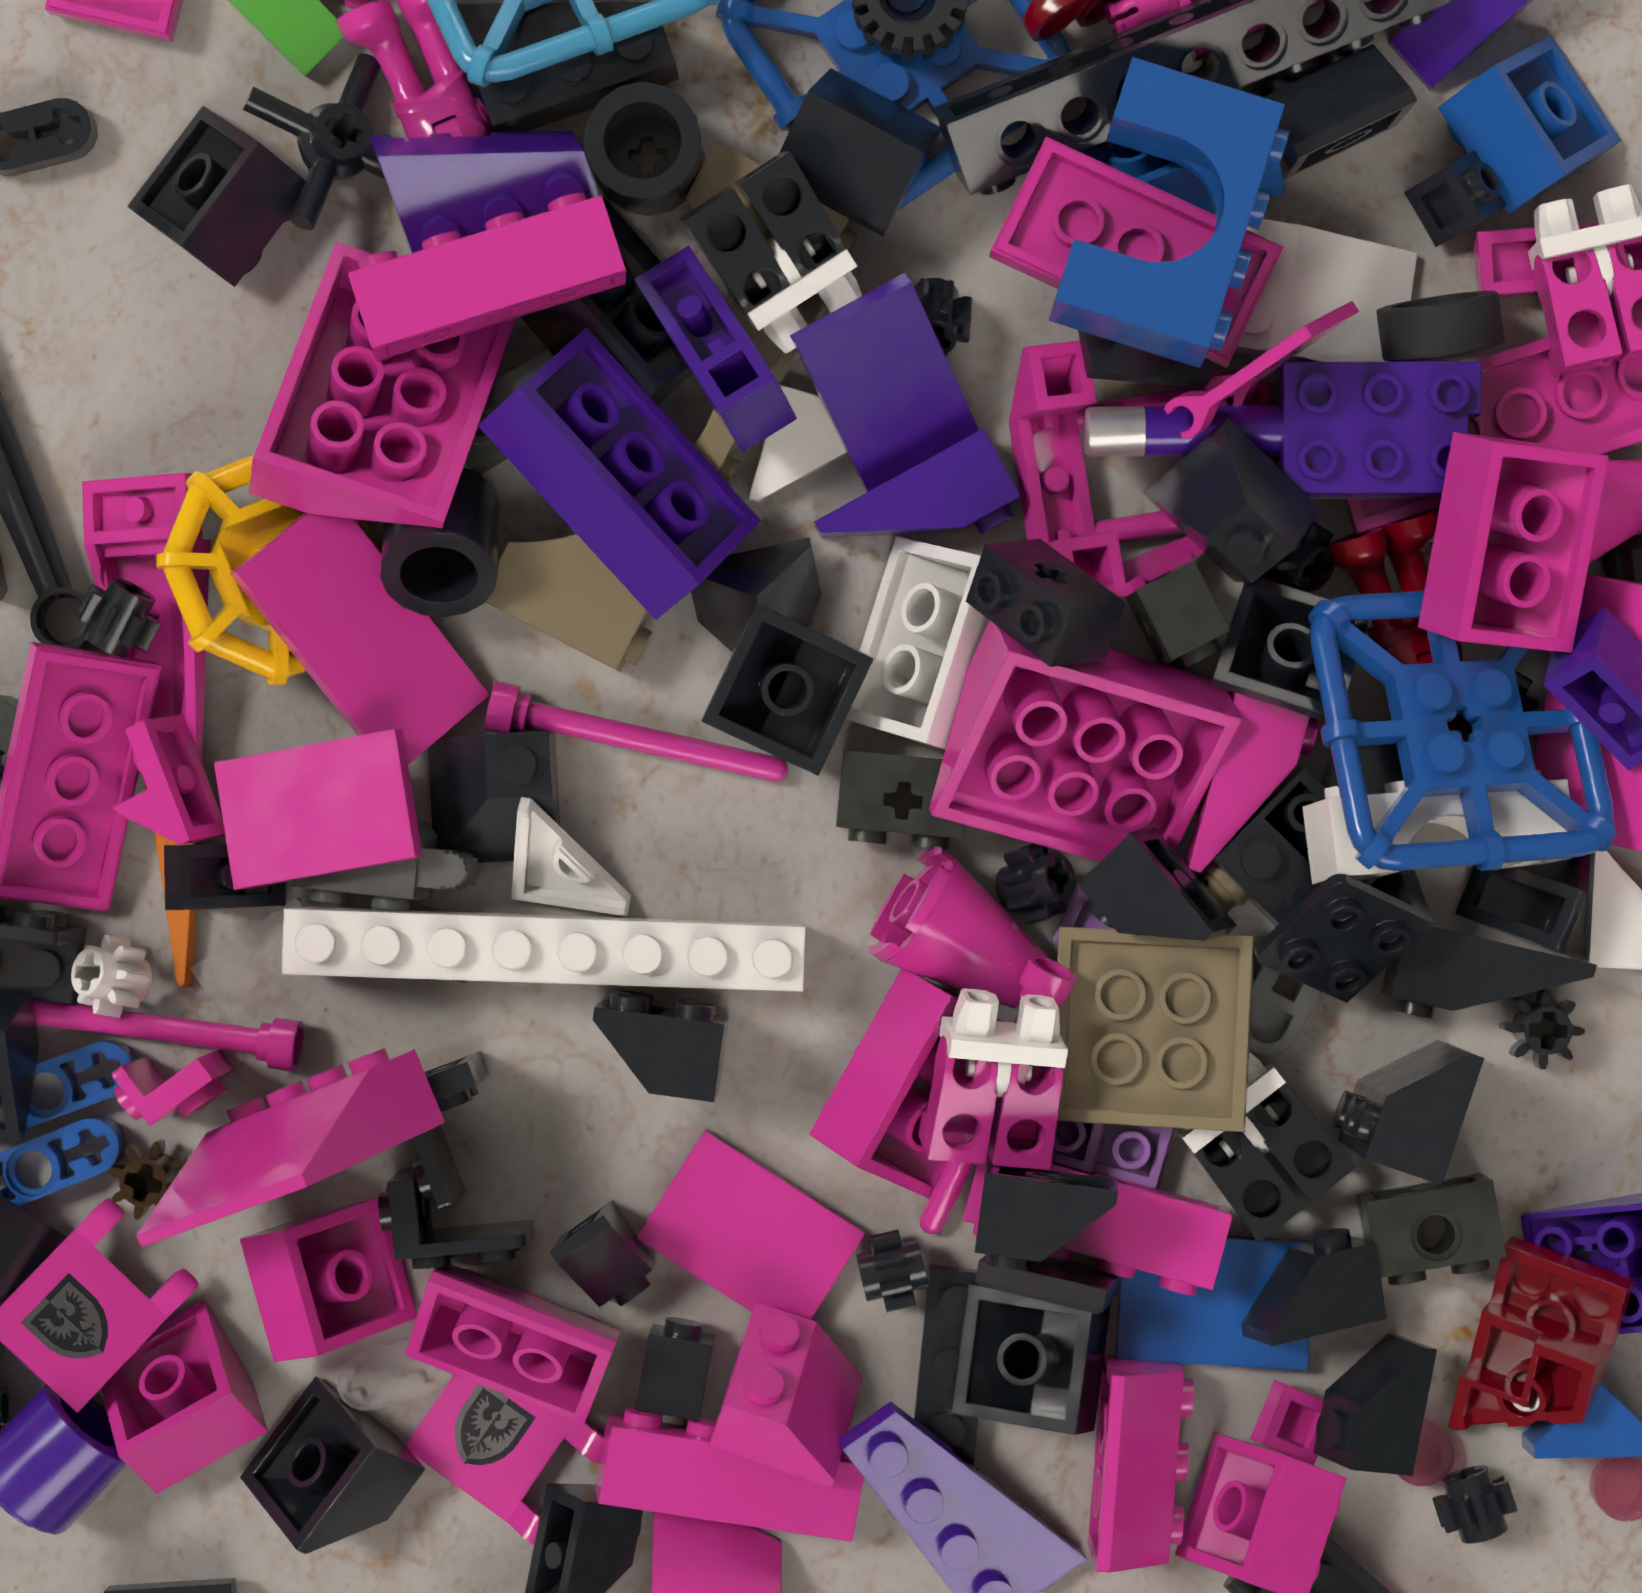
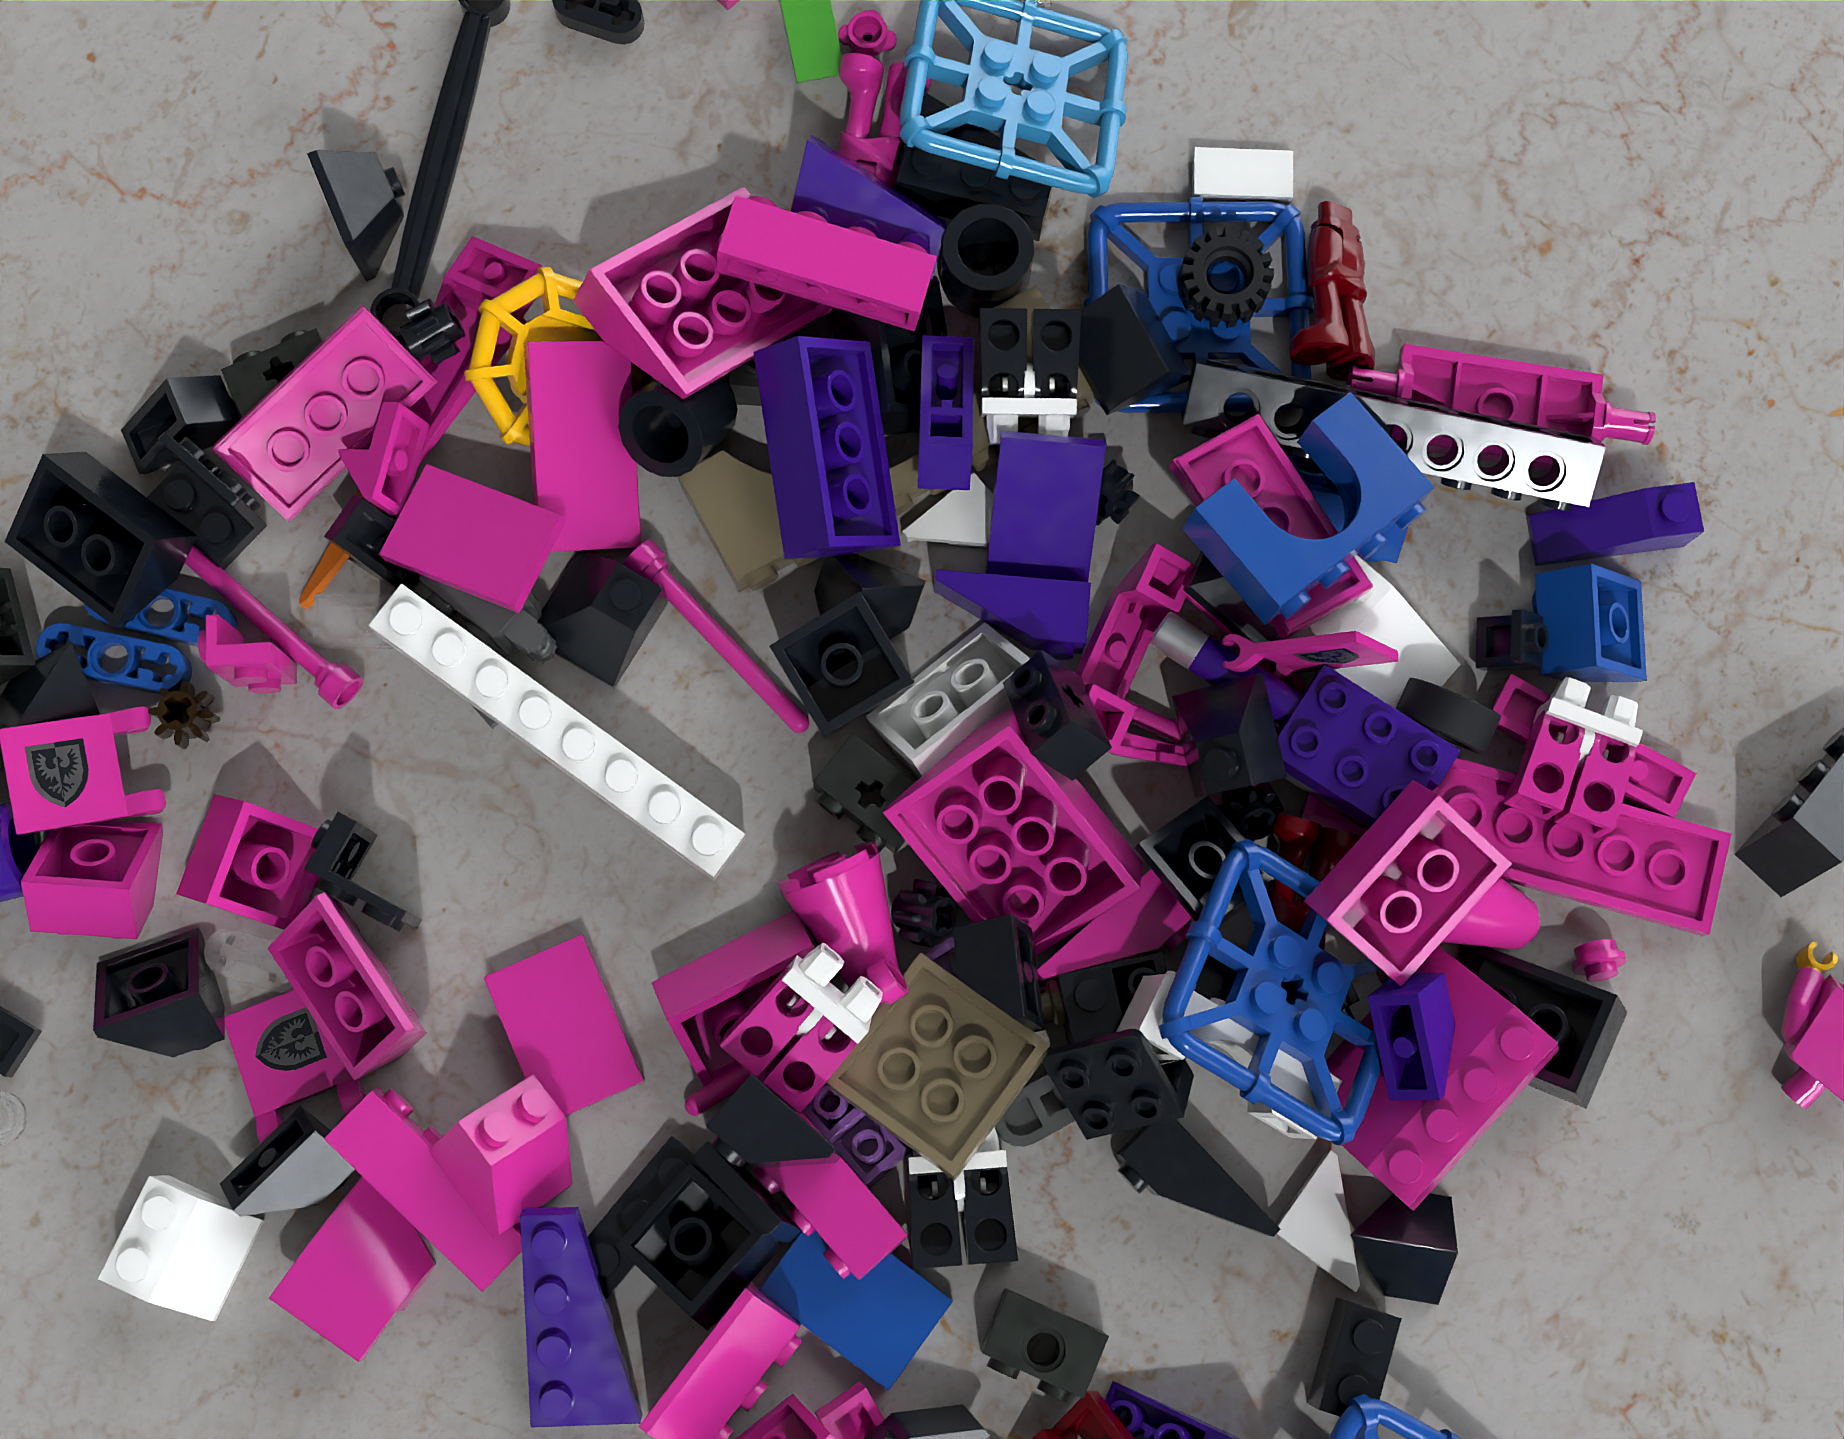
camera: 30 degrees right, 10 degrees down
(111, 976) = (258, 563): white gear -> none
(219, 196) = (690, 120): black slope -> none
(297, 1140) = (300, 744): dark pink slope -> none
(314, 135) = (779, 117): black bar -> none
(436, 1171) = (393, 788): black bracket -> none
(557, 870) = (604, 688): white tile -> none
(605, 1257) = (451, 972): black slope -> none
(667, 1048) = (593, 856): black slope -> none
(675, 1369) = (446, 1087): black brick -> none
(892, 1270) = (643, 1118): black gear -> none
(1179, 616) = (1142, 792): pearl dark grey brick -> none
(1318, 1290) = (934, 1333): black slope -> none
(1338, 106) = (1465, 532): black slope -> none
(1411, 1110) = (1080, 1243): black slope -> none
(1529, 901) = (1259, 1154): black slope -> none
(1550, 1043) = (1227, 1249): black gear -> none

